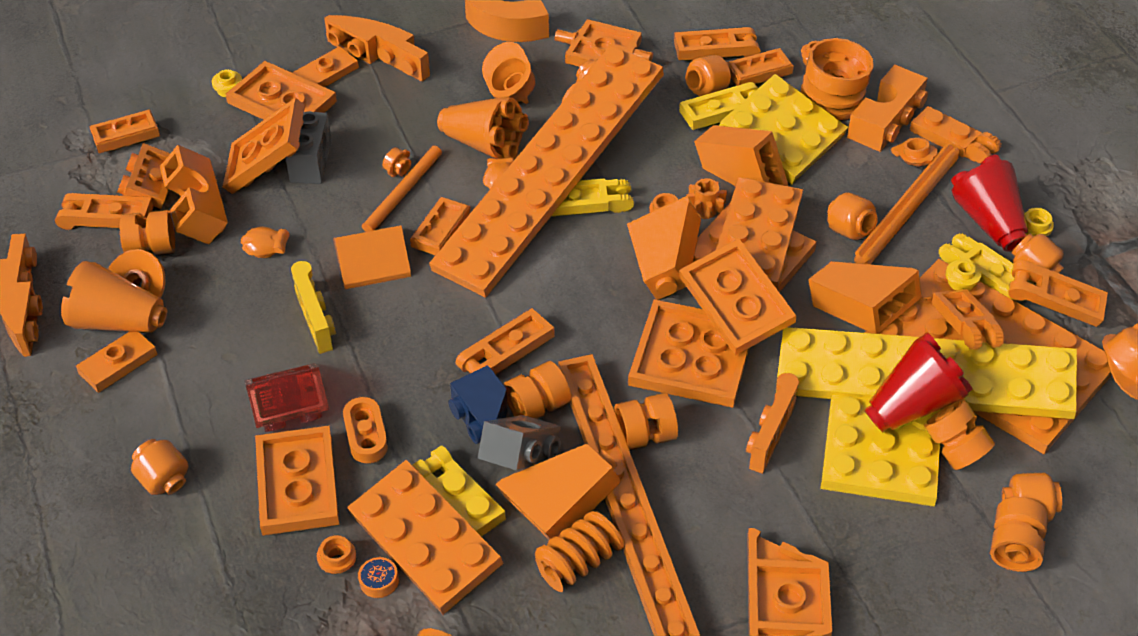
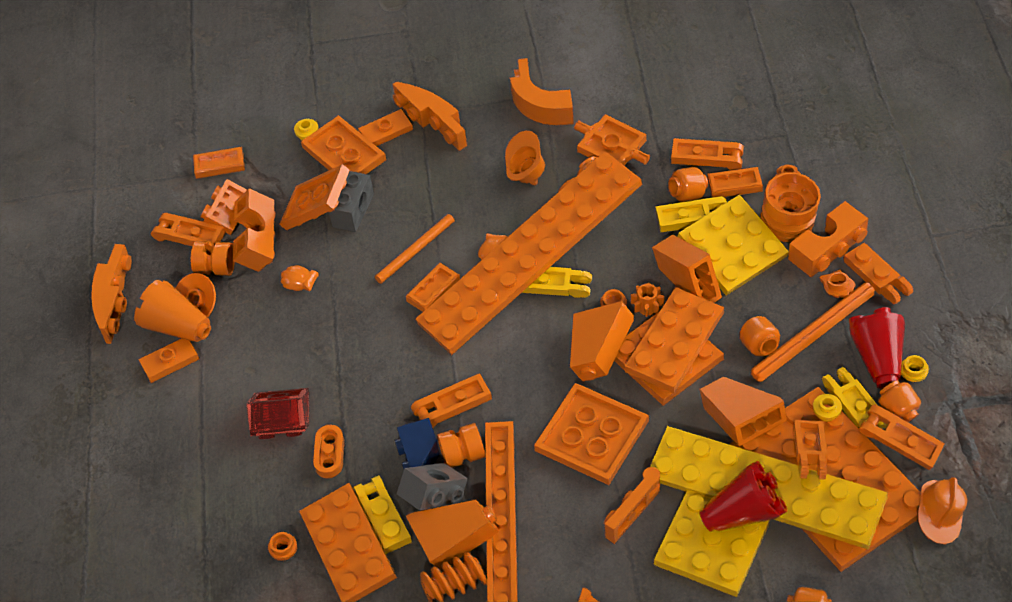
camera: 20 degrees right, 5 degrees up
(159, 467) = (176, 453): orange head -> none
(296, 480) = (269, 482): orange plate -> none
(312, 306) = (317, 339): yellow plate -> none
(372, 257) = (374, 304): orange slope -> none
(378, 577) = (307, 569): tile -> none
(397, 162) = (416, 224): orange plate -> none
(486, 125) = (493, 205): orange cone -> none
(635, 425) = (534, 485): orange wheel -> none
(737, 296) = (634, 395): orange plate -> none
(961, 437) = (769, 545): orange wheel -> none

